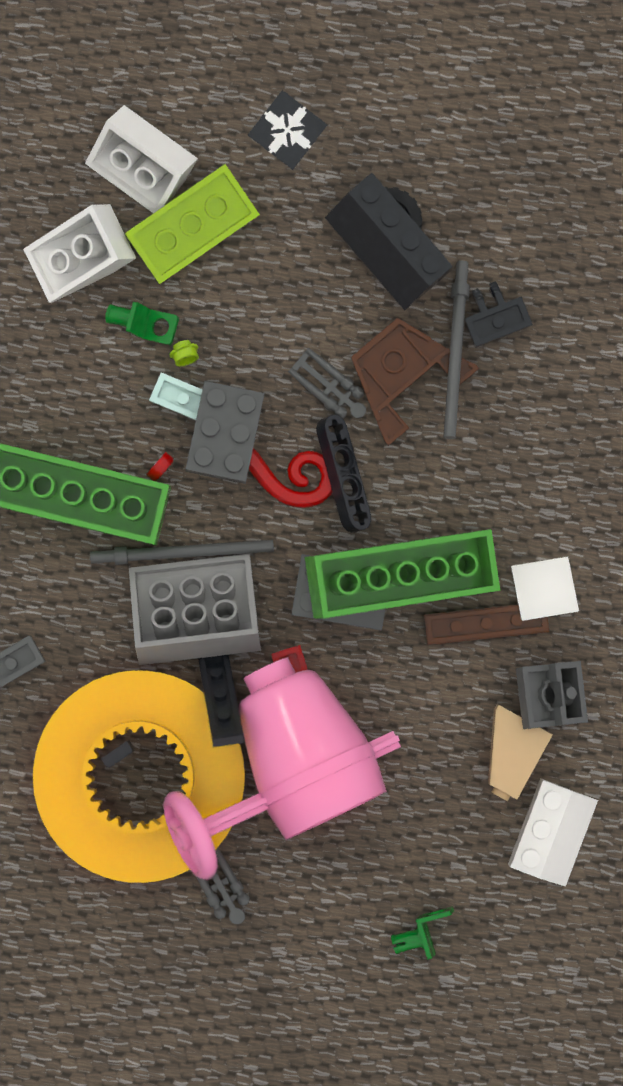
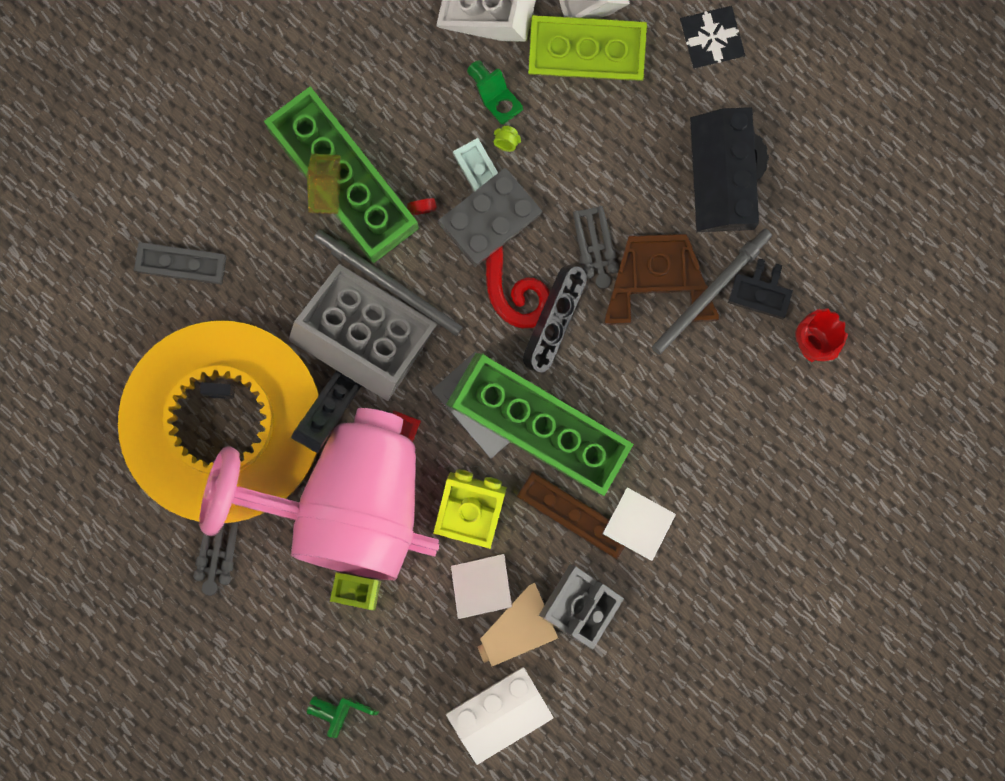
camera: 30 degrees right, 5 degrees down
(67, 514) = (323, 183): none -> clear yellow slope
(357, 826) = (355, 591): none -> lime slope
(398, 685) = (470, 508): none -> neon yellow plate
(456, 741) = (481, 586): none -> white sticker
(574, 316) = (821, 335): none -> red hair

